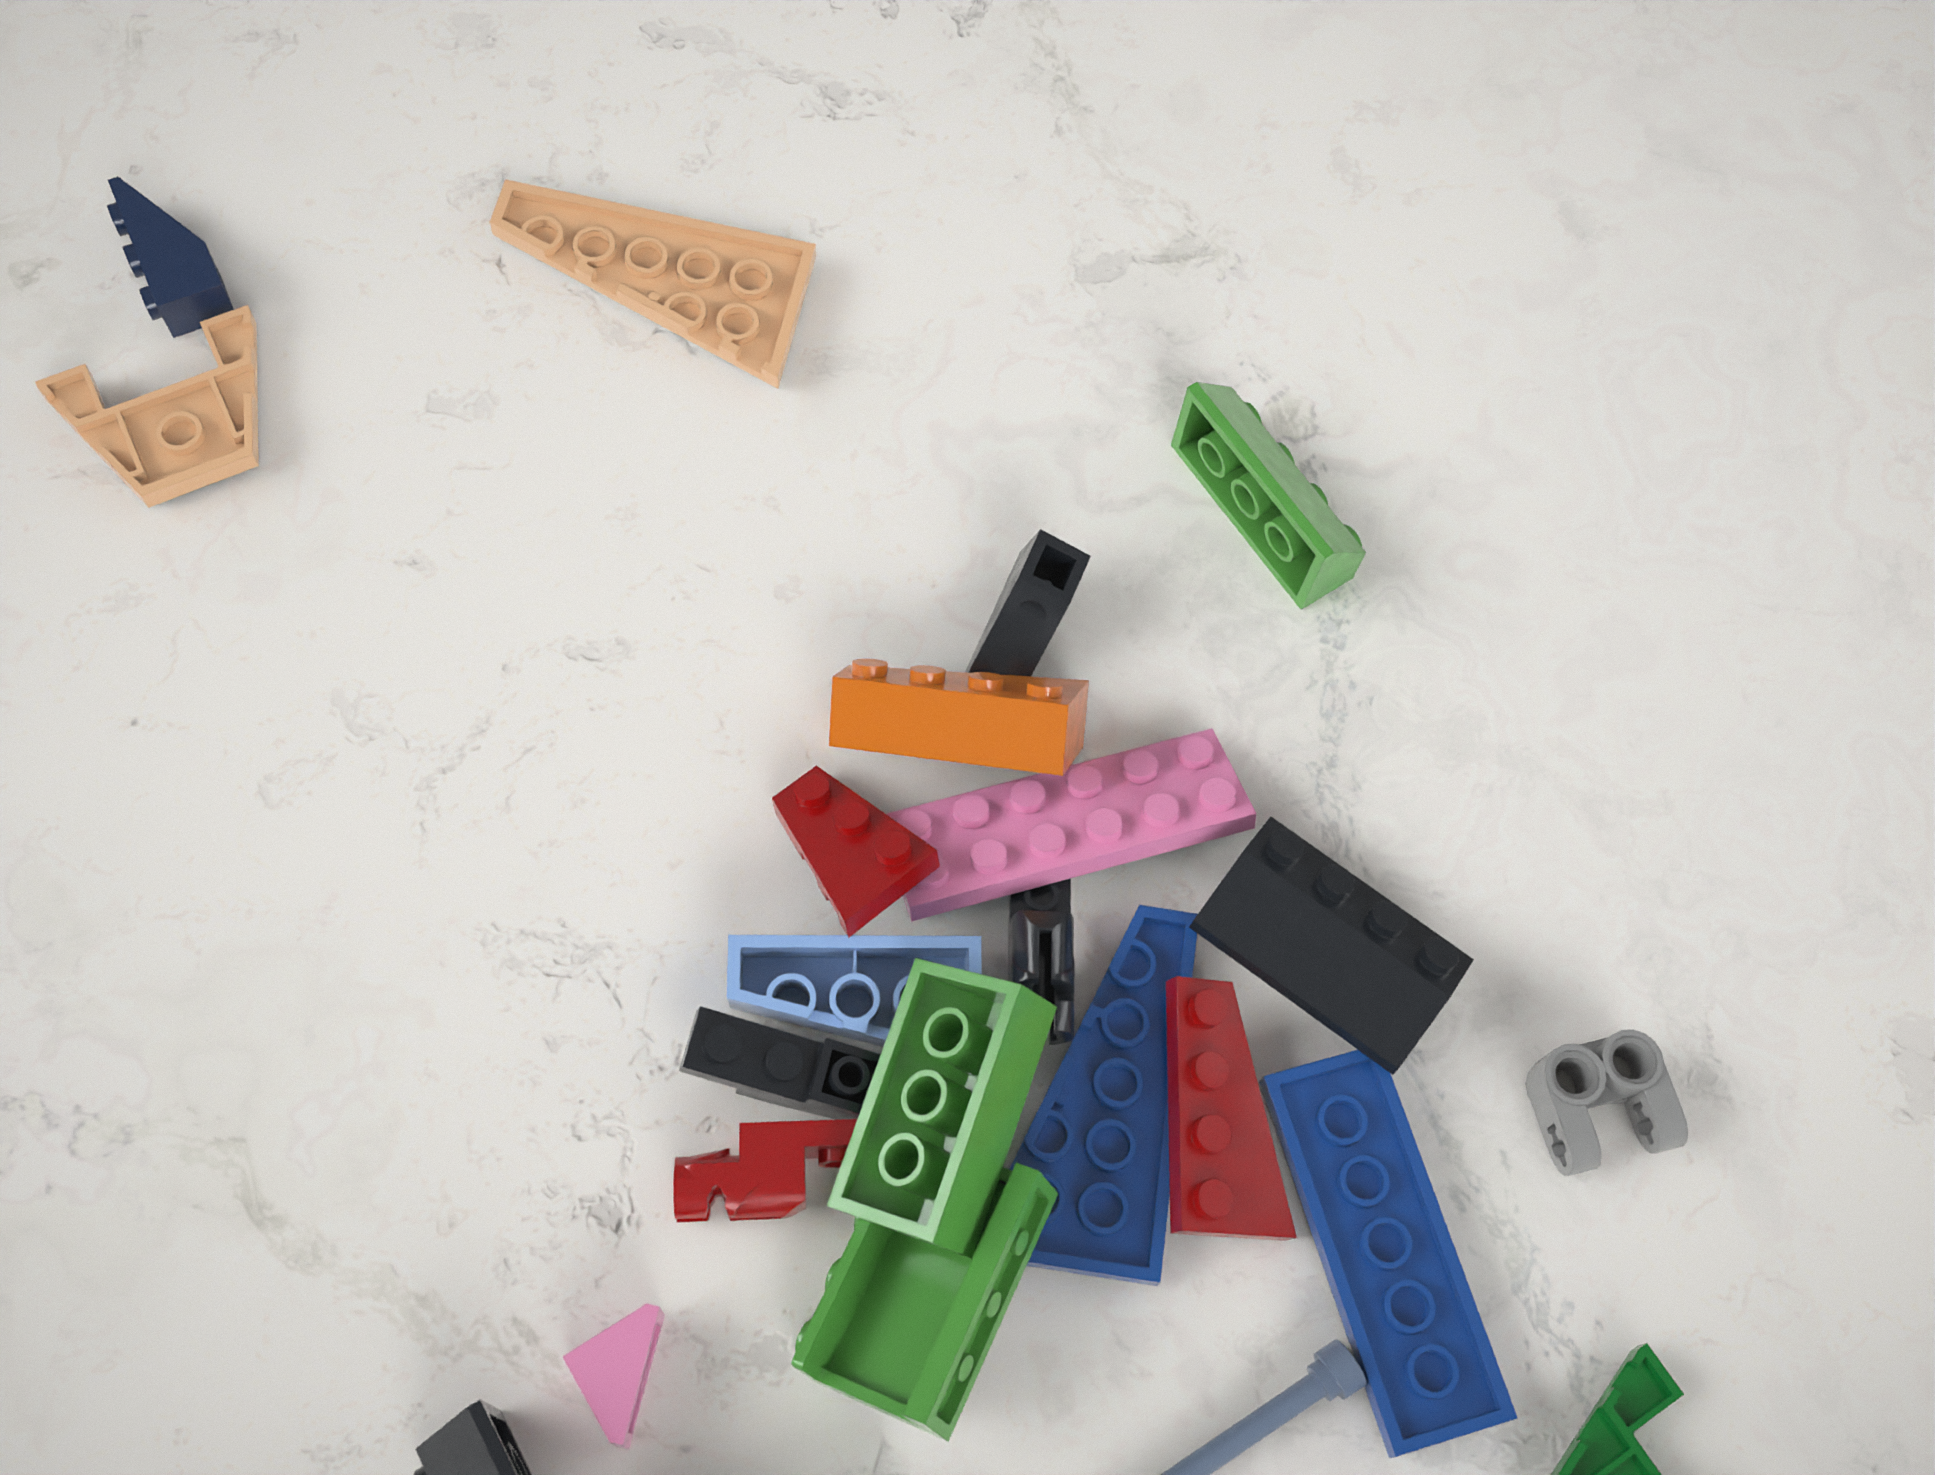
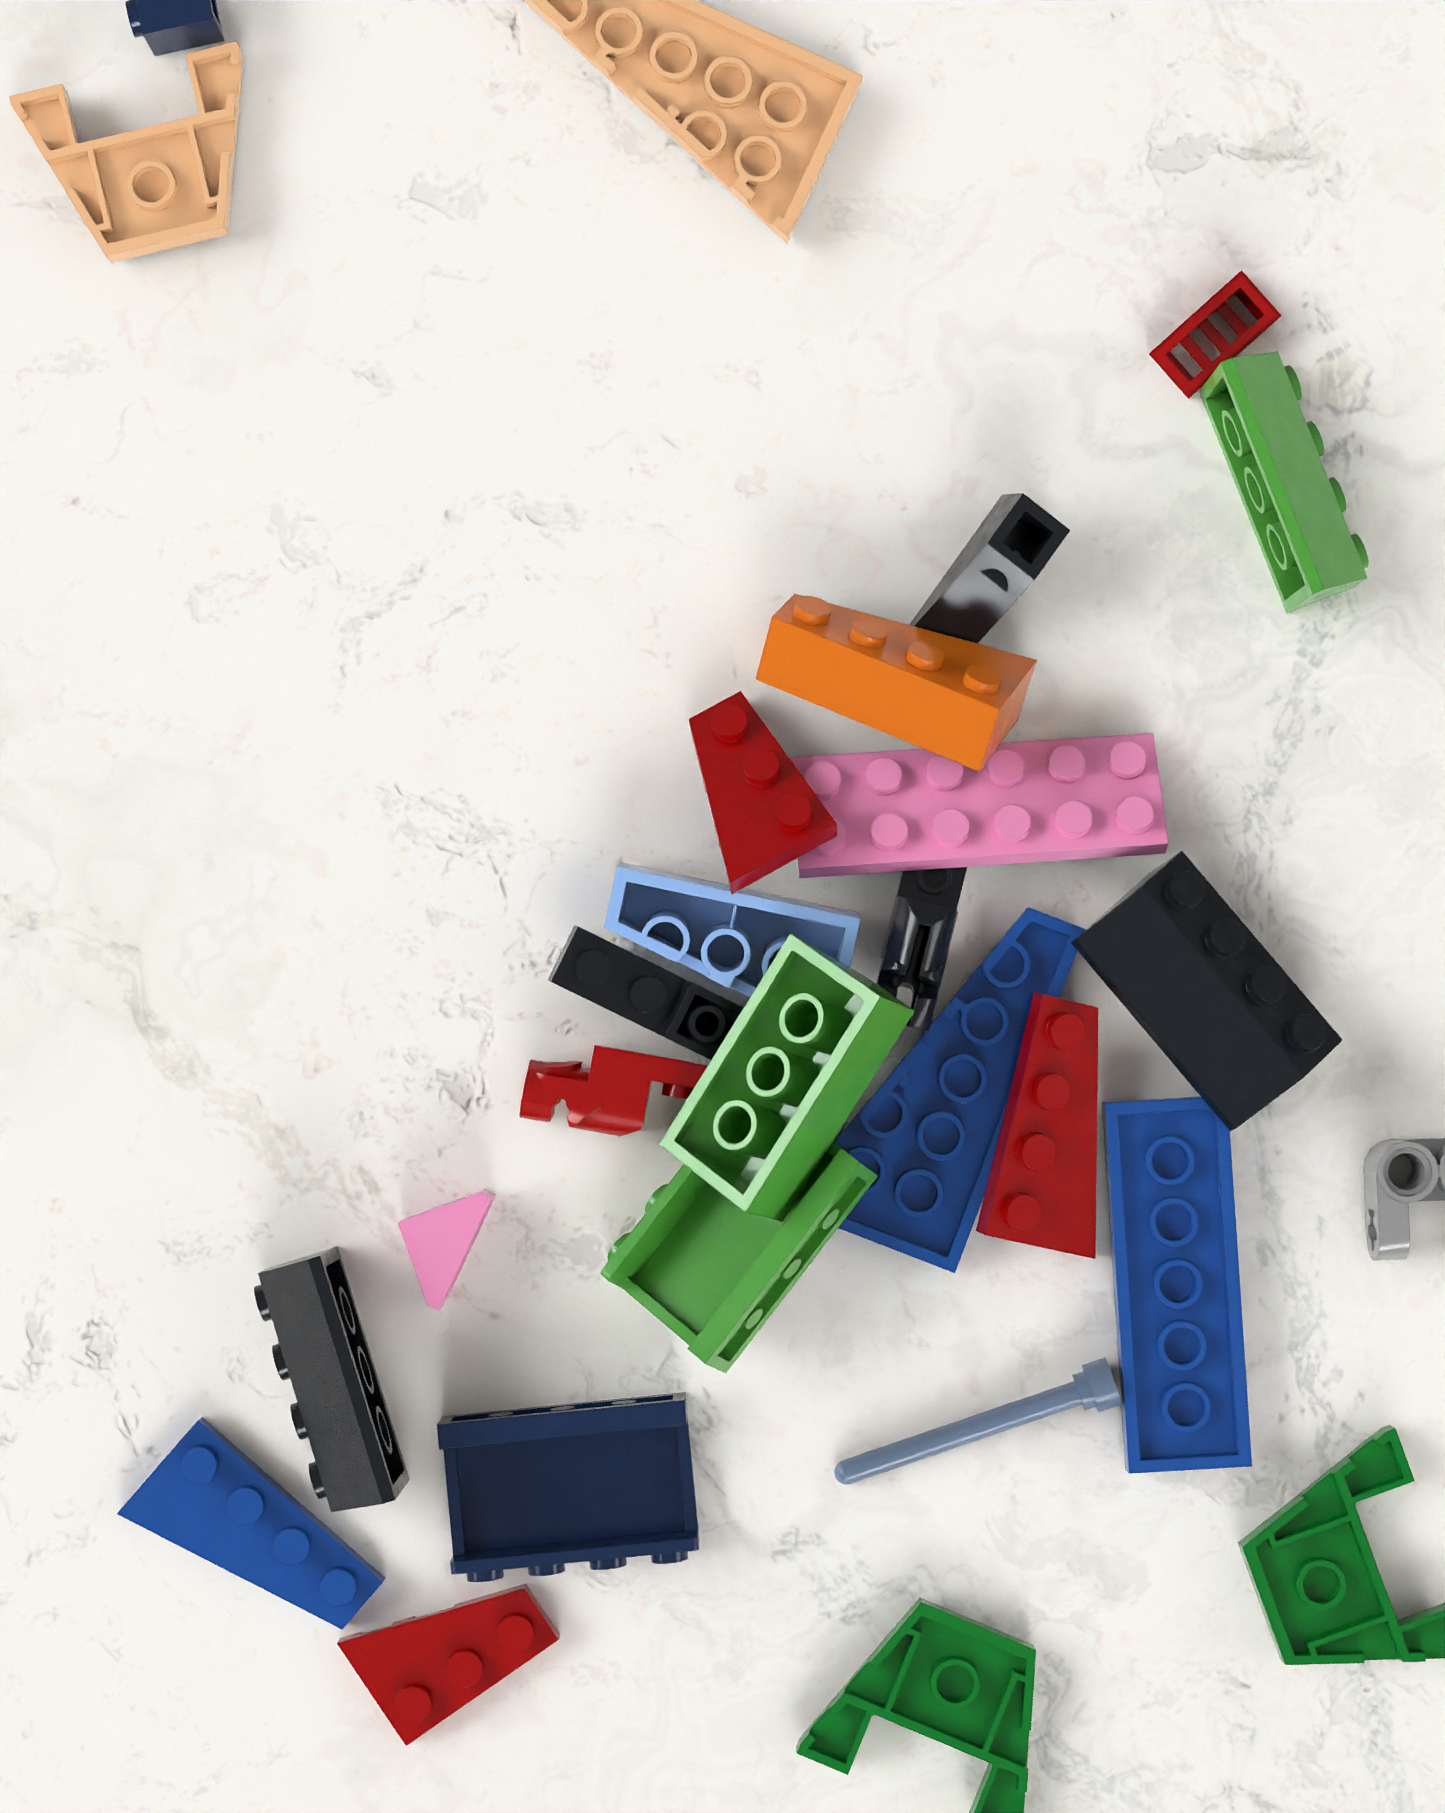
camera: 20 degrees right, 20 degrees up
(1183, 353) = (1250, 297): none -> red slope

